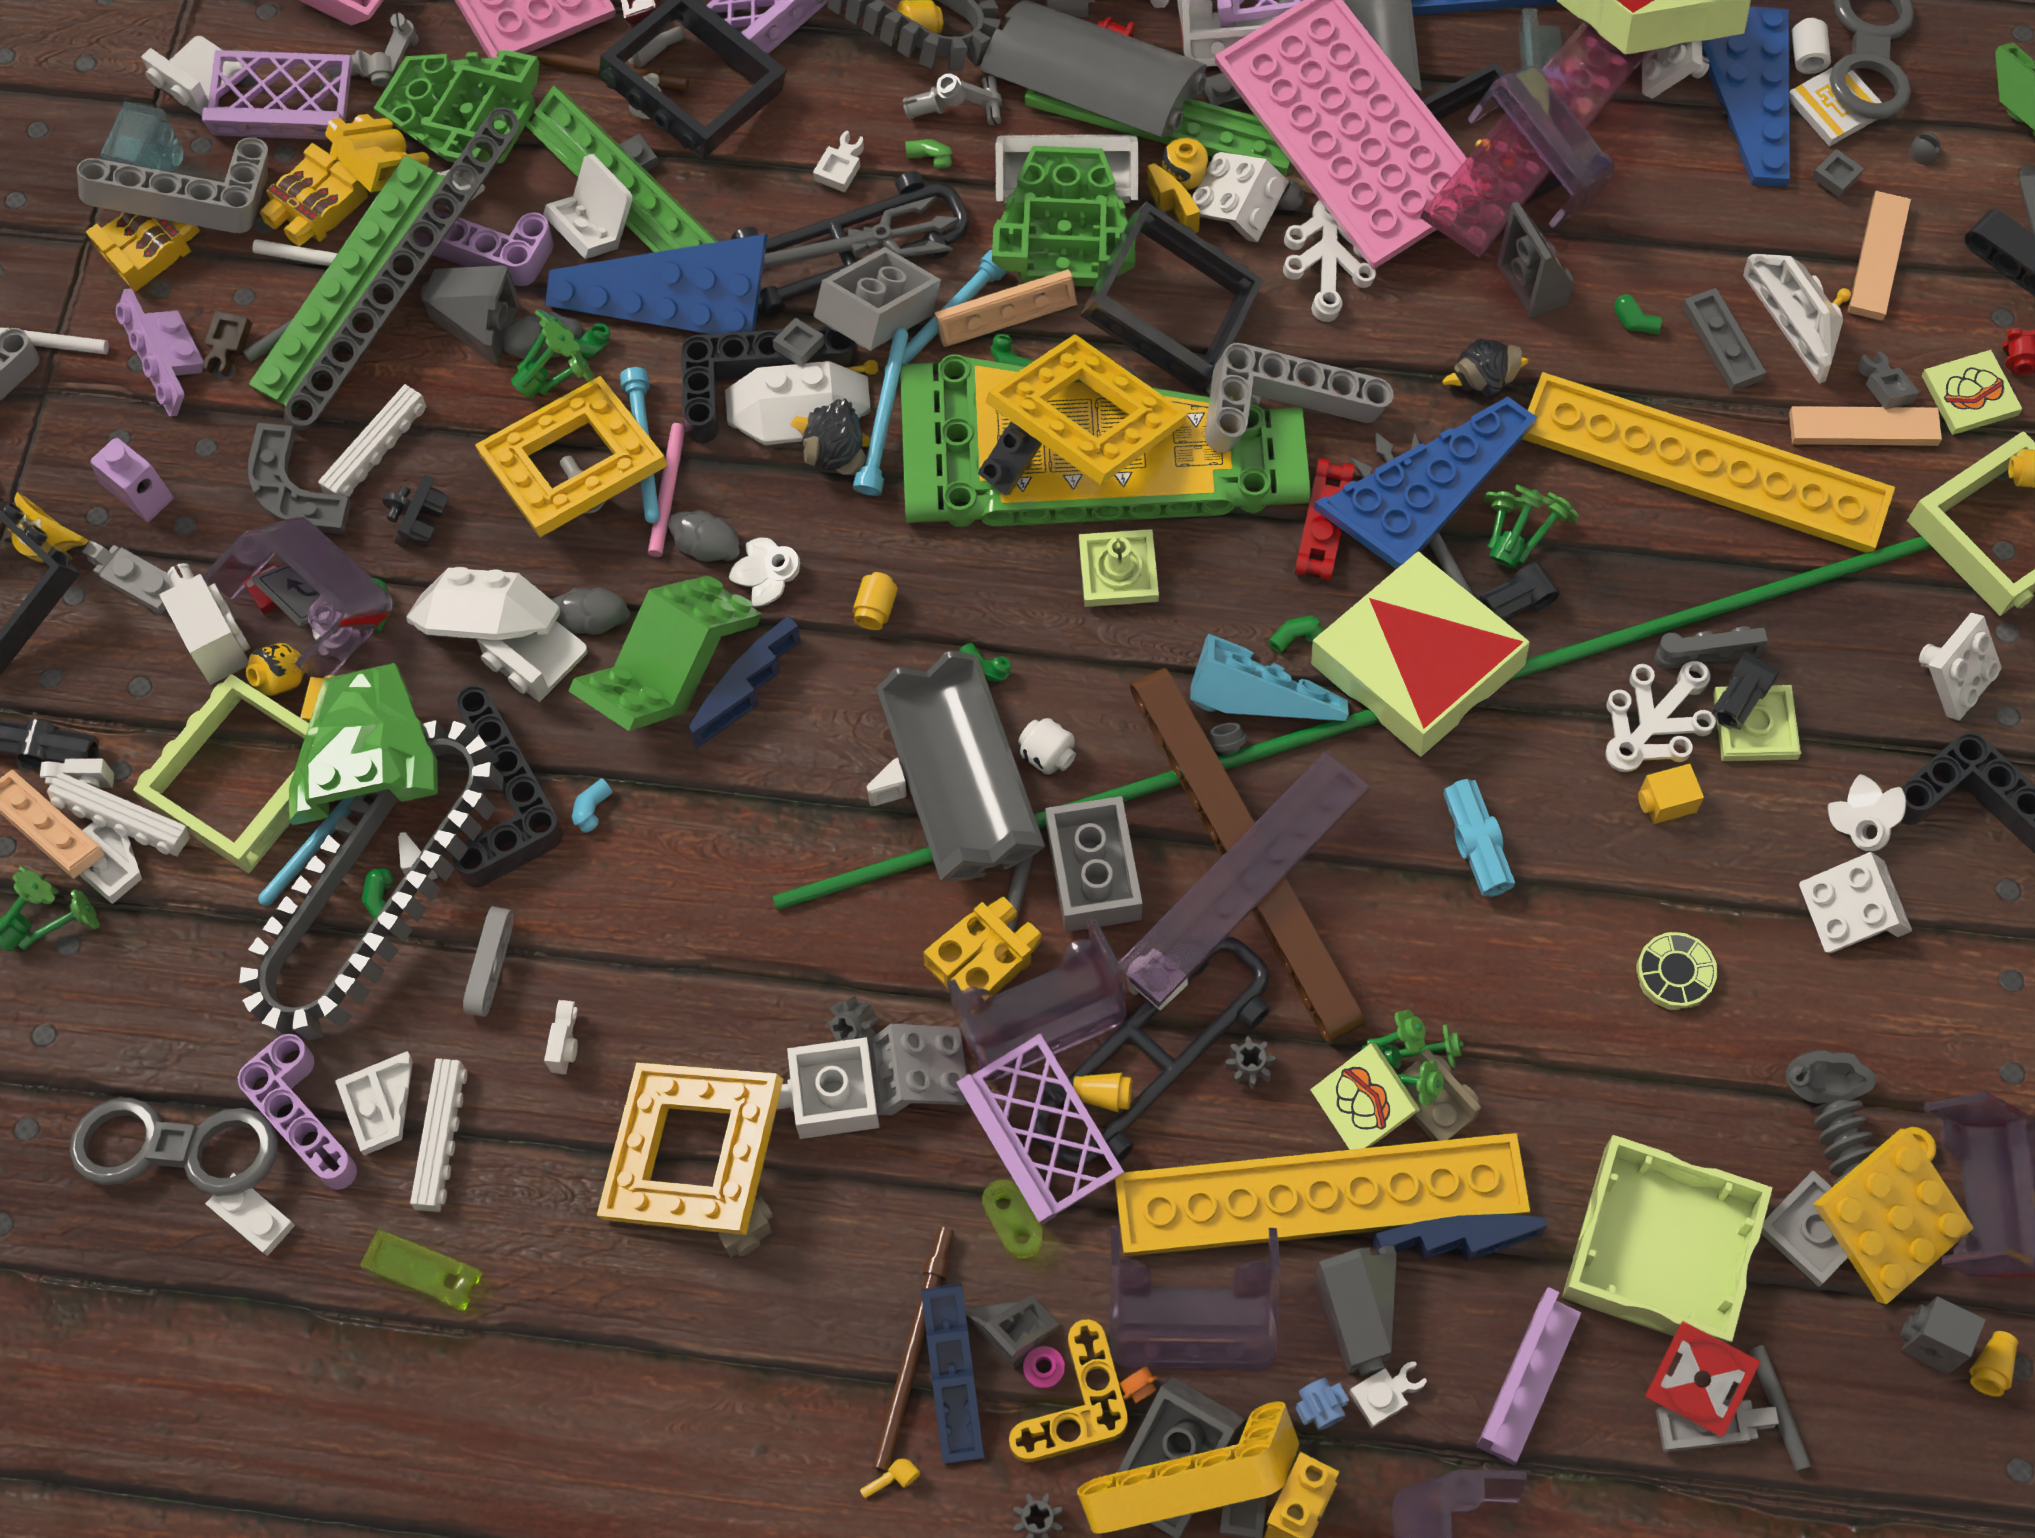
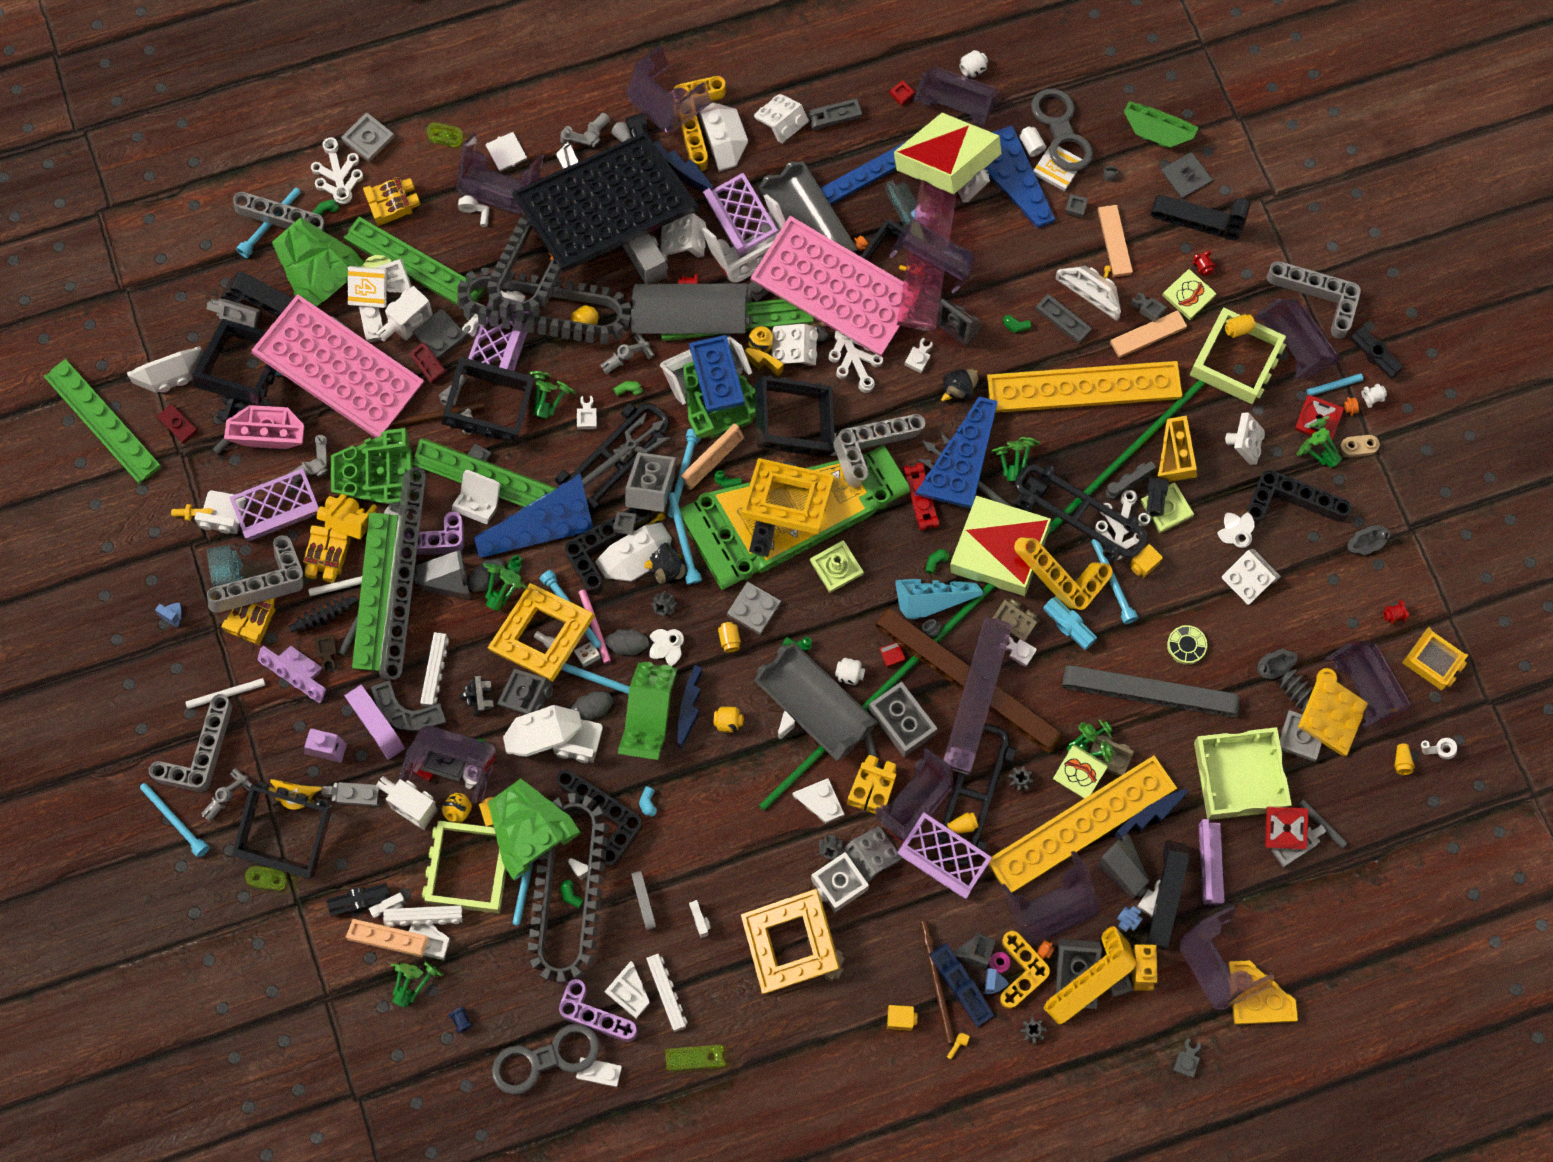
camera: 30 degrees left, 5 degrees up
(32, 187) = (170, 613): none -> medium blue tile
(78, 1014) = (460, 1020): none -> dark blue bush
(138, 49) = (188, 512): none -> yellow piece
(227, 478) = (375, 722): none -> lavender beam
(253, 284) = (323, 613): none -> black piece
(493, 539) = (525, 692): none -> dark grey plate
(608, 557) = (595, 678): none -> medium azure piece
(628, 528) = (587, 654): none -> white slope
(774, 123) = (541, 407): none -> plant
(795, 500) = (663, 604): none -> dark grey gear
(797, 731) = (728, 719): none -> yellow head
(813, 1378) = (901, 1018): none -> yellow brick
(881, 938) = (820, 800): none -> white wing
(943, 575) = (753, 608): none -> light grey plate
(1012, 1220) = (951, 902): clear neon green plate -> none
(1014, 1397) = (994, 982): none -> medium blue tile
(1077, 177) = (716, 374): none -> blue plate
(1136, 753) = (892, 654): none -> red tile
(1365, 848) = (1020, 652): none -> white plate
(1390, 793) = (1022, 620): none -> dark tan bracket
(1413, 1393) = (1168, 896): none -> black beam
(1433, 85) = (861, 244): none -> orange plate
(1439, 301) = (918, 357): none -> white plate
(1498, 745) = (1060, 577): none -> yellow beam
(1570, 1022) = (1151, 691): none -> dark grey beam
(1593, 871) = (1128, 614): none -> medium azure piece
(1616, 743) = (1112, 549): none -> black bar
(1818, 637) = (1177, 452): none -> yellow wedge
(1941, 1335) = (1376, 759): dark grey brick -> none

